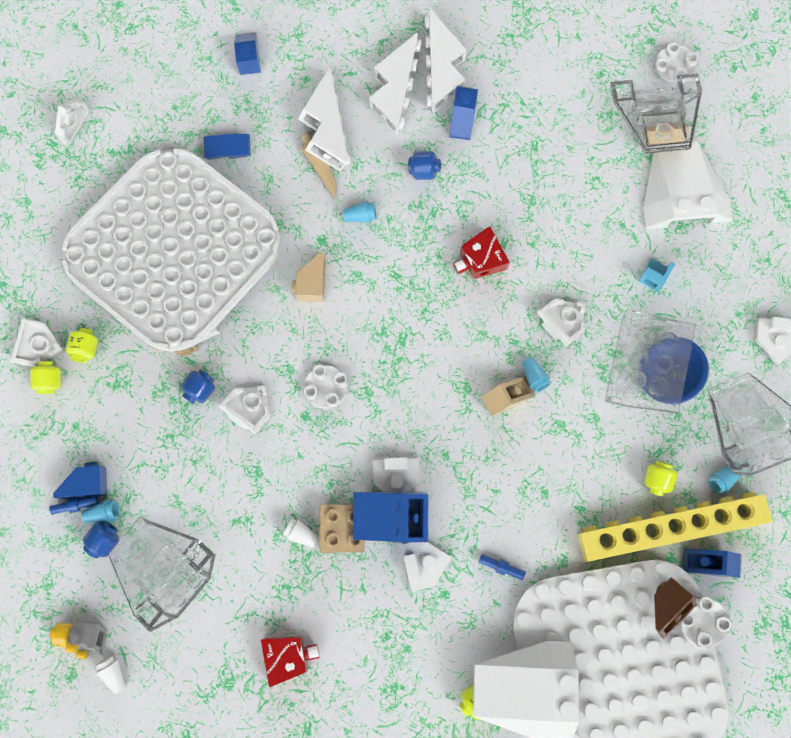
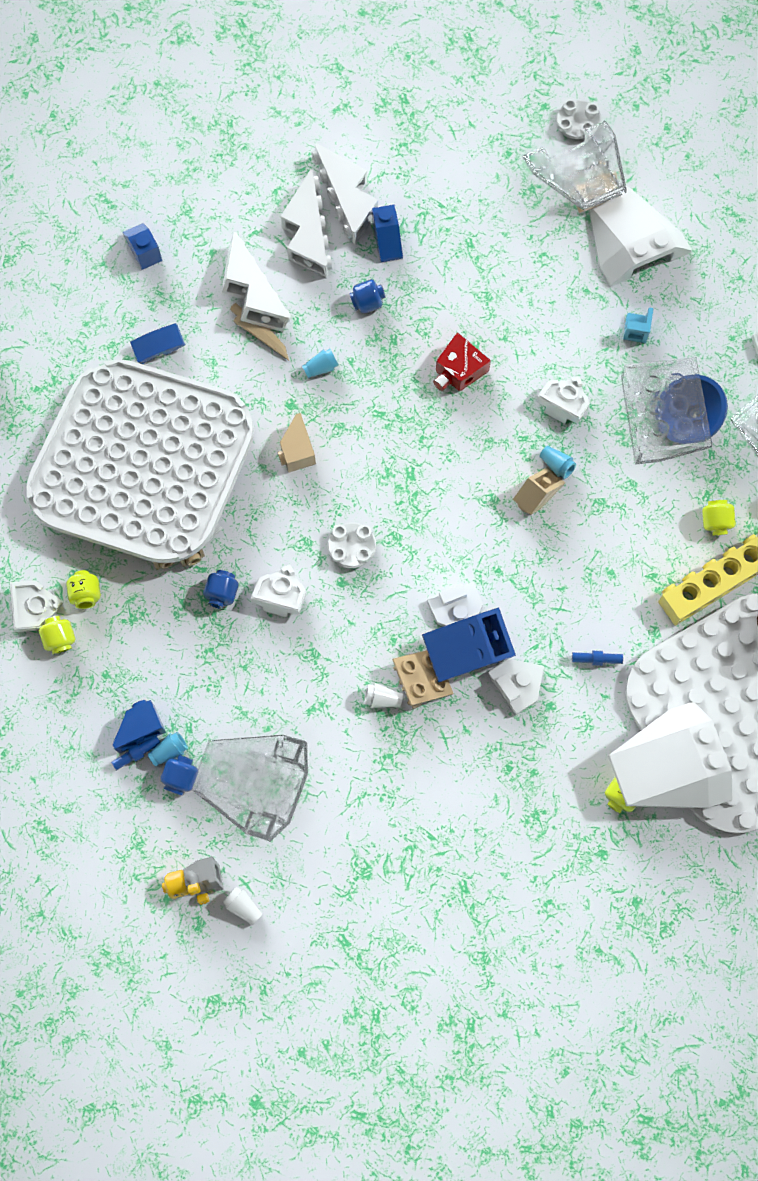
camera: 20 degrees left, 5 degrees down
(286, 658) = (417, 822): red torso -> none

